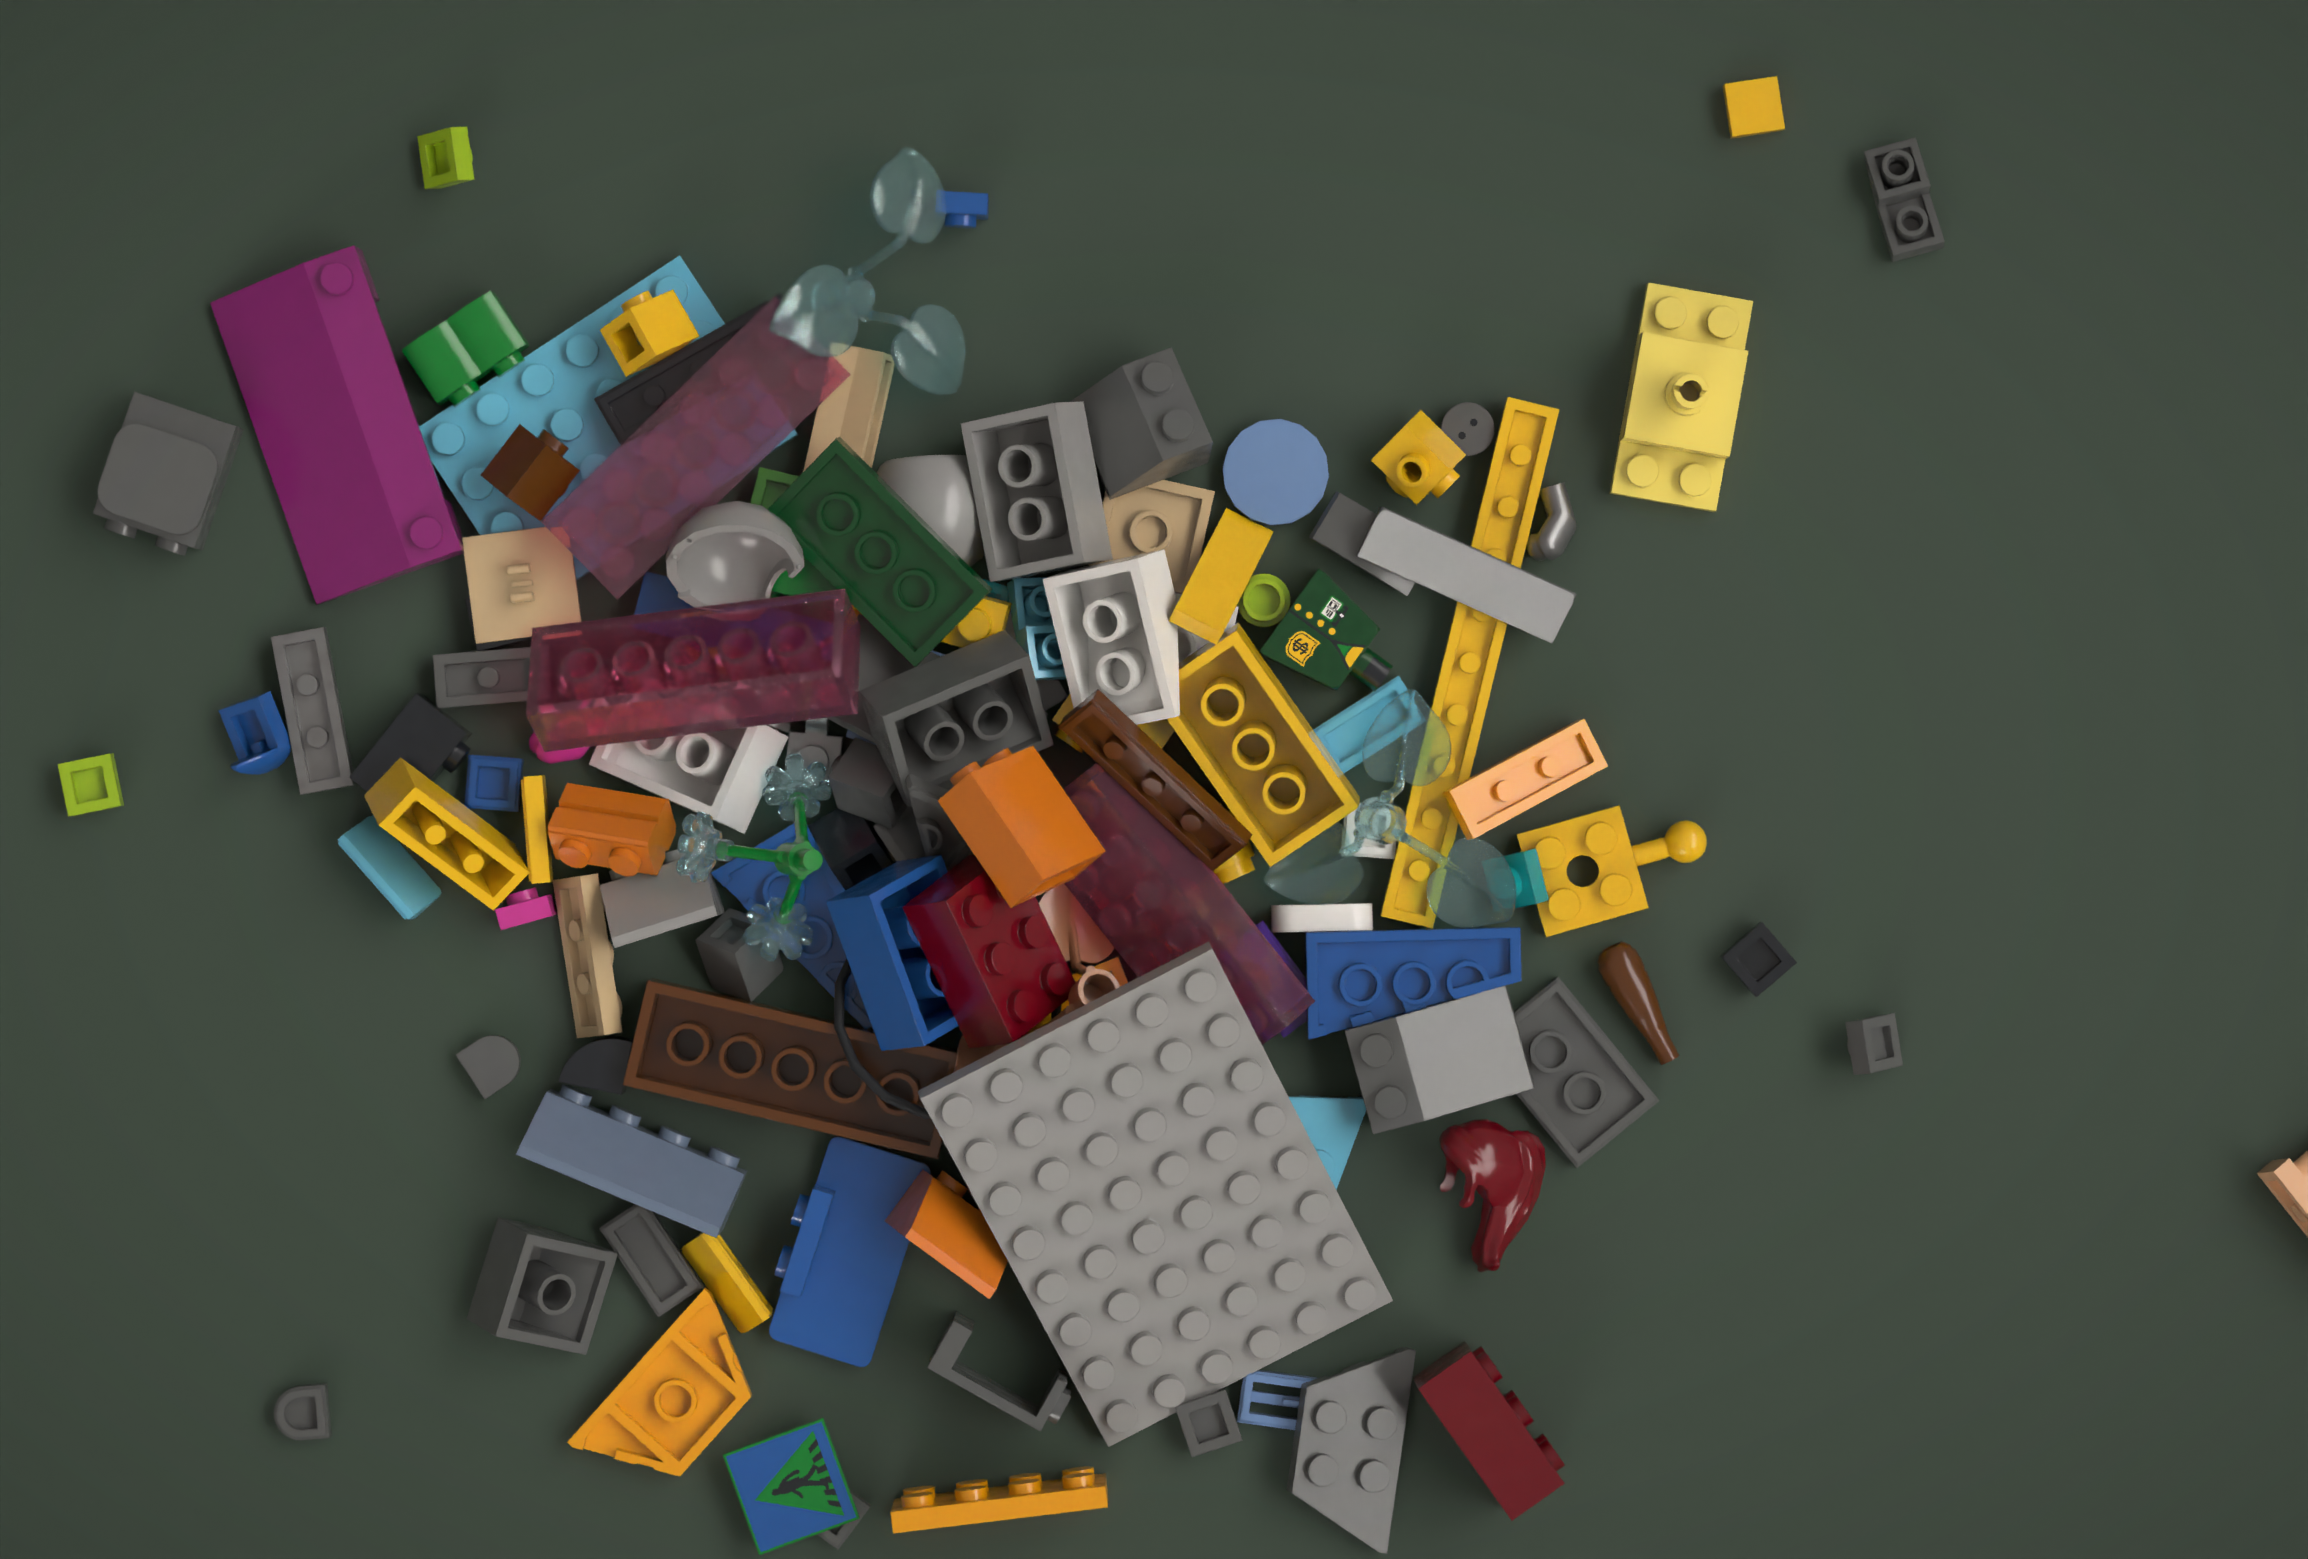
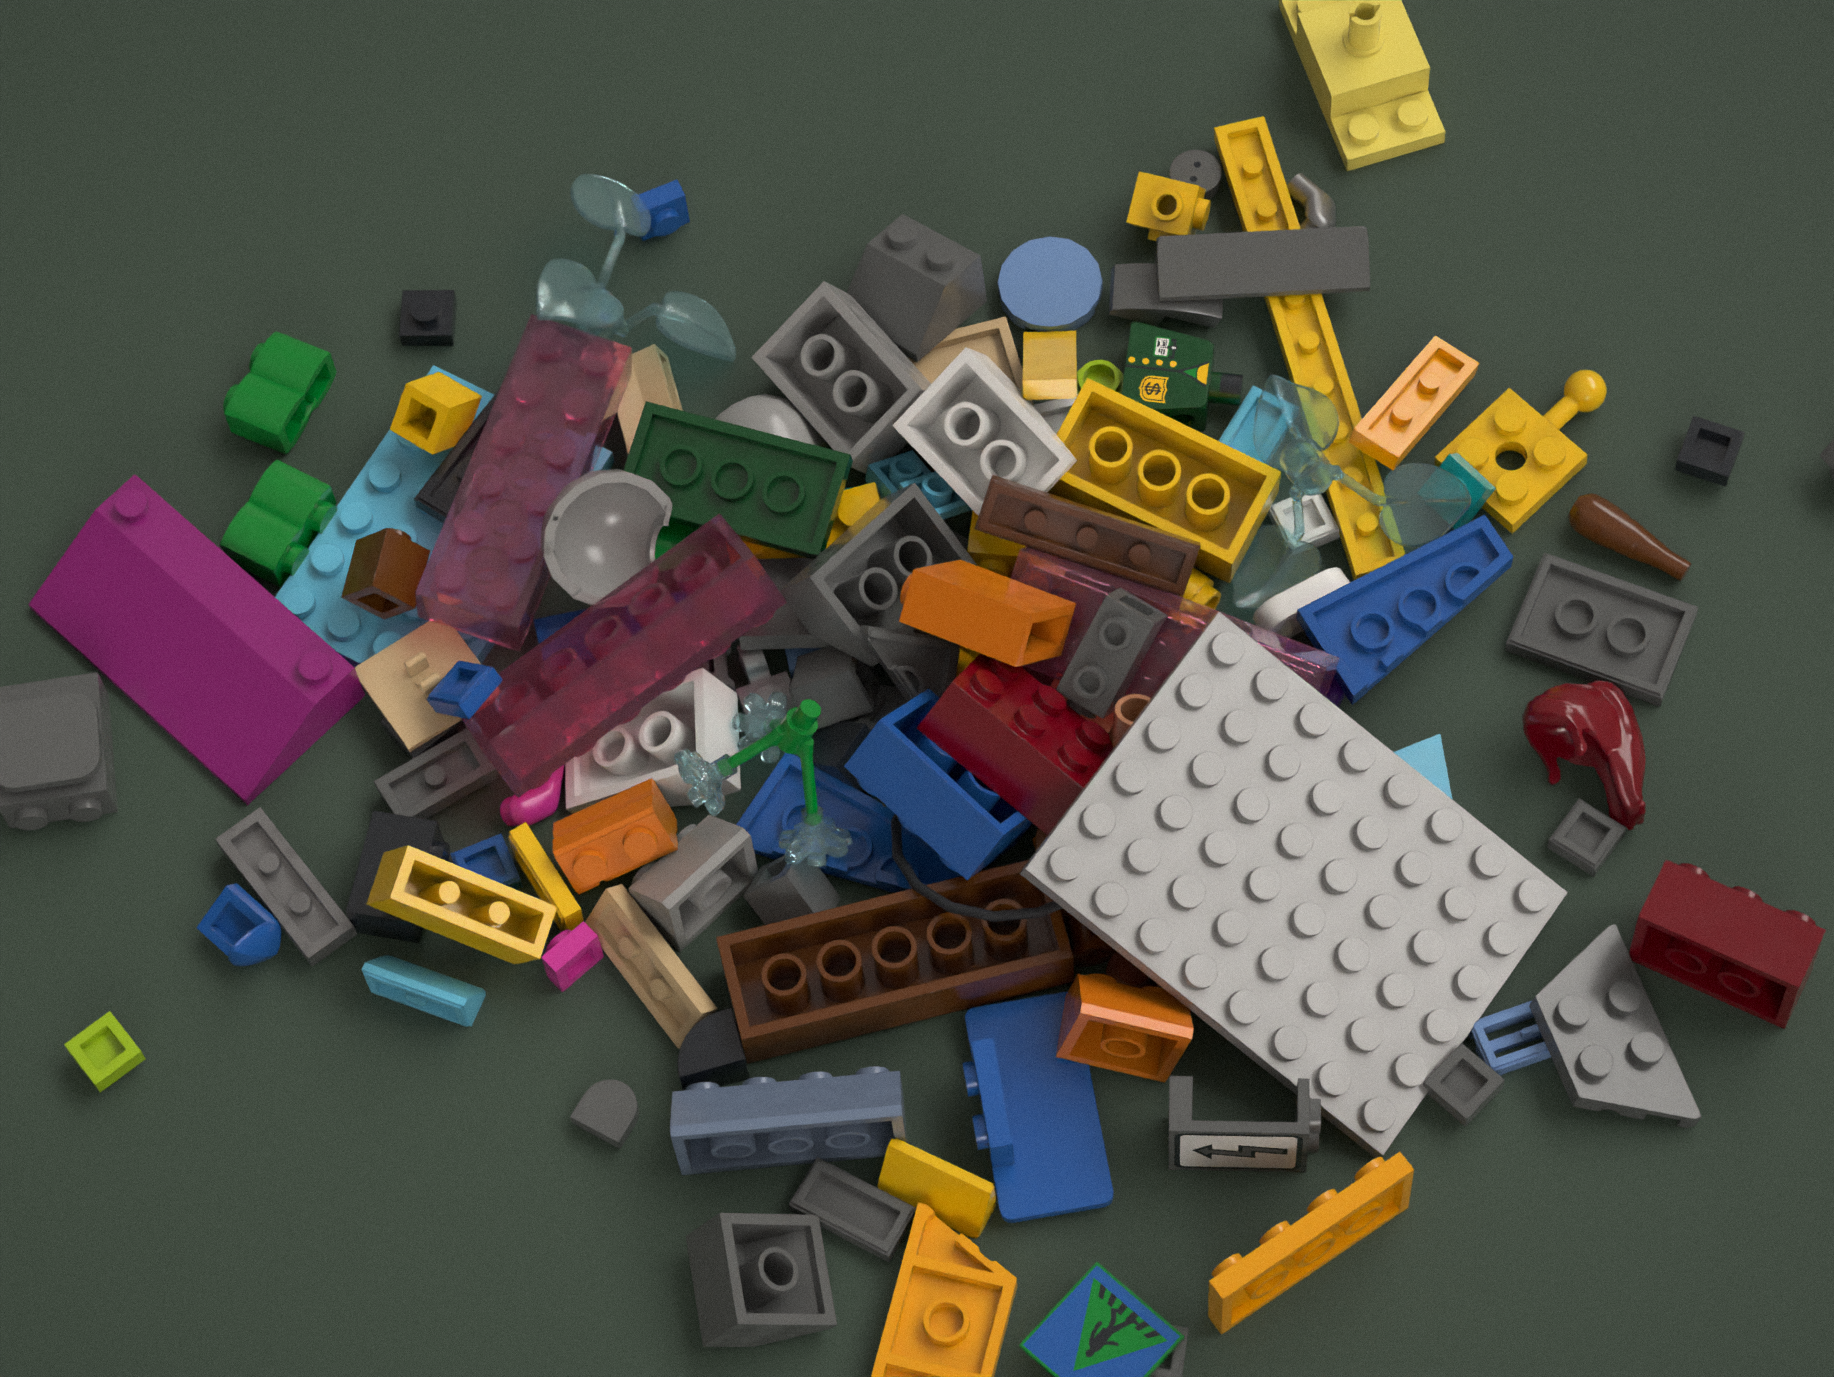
camera: 20 degrees left, 25 degrees down
(445, 157) = (186, 386): lime plate -> none
(527, 209) = (279, 392): none -> green brick
(546, 624) = (464, 689): none -> blue tile
(700, 197) = (428, 318): none -> black plate
(1111, 913) = (1110, 654): none -> dark grey brick
(1439, 1059) = (1478, 664): slope -> none
(1440, 1255) = (1586, 837): none -> dark grey tile

